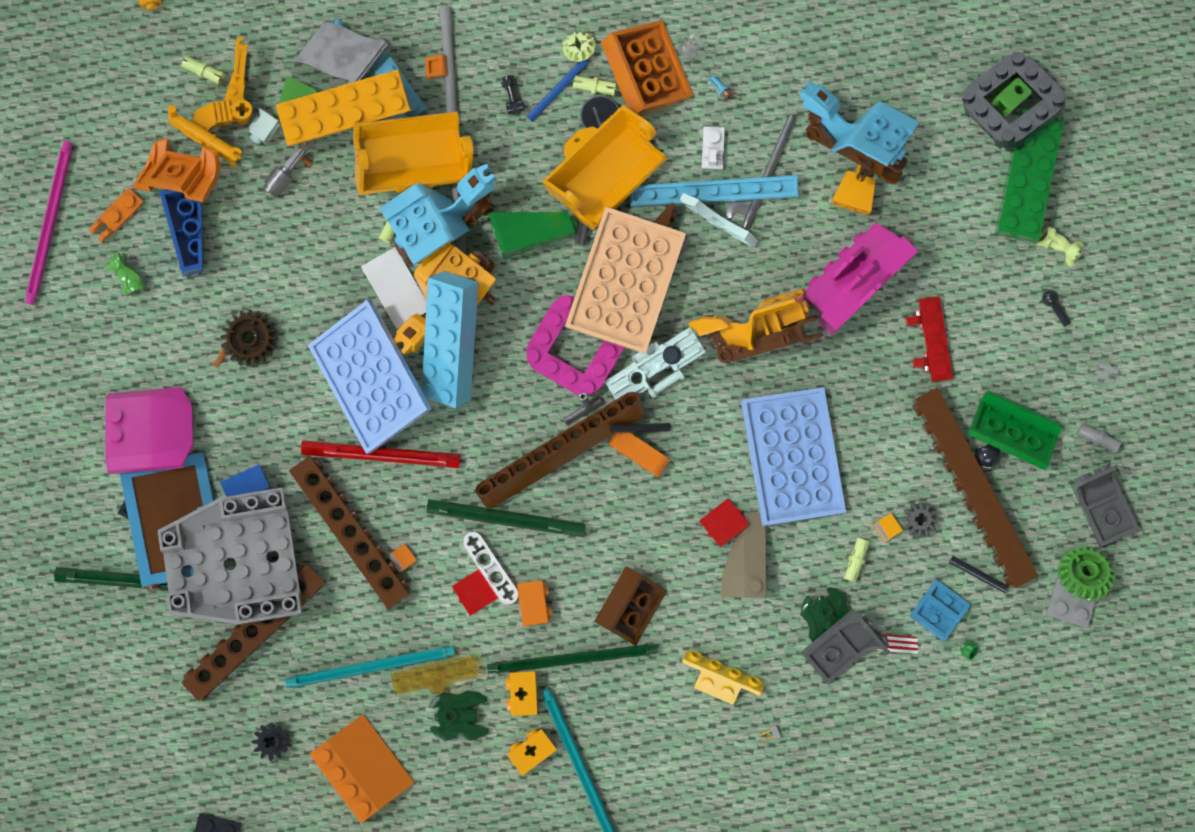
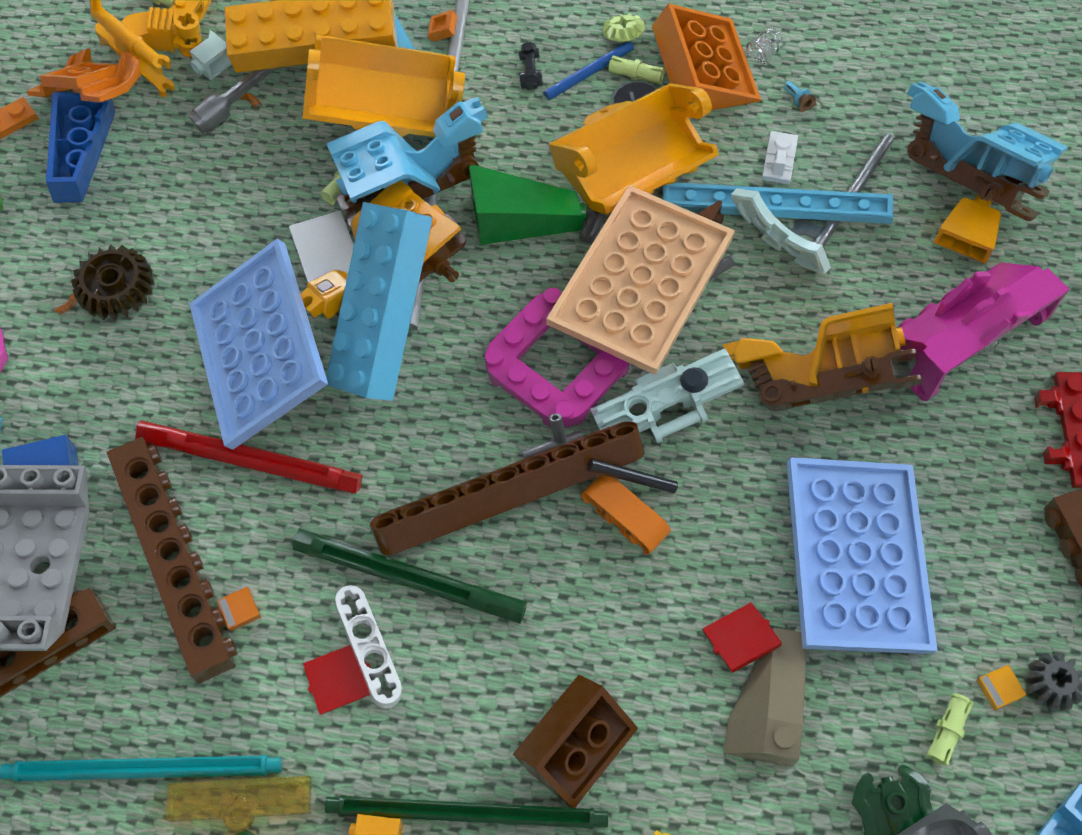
camera: 10 degrees right, 20 degrees down
(533, 603) = (421, 709): orange hinge -> none

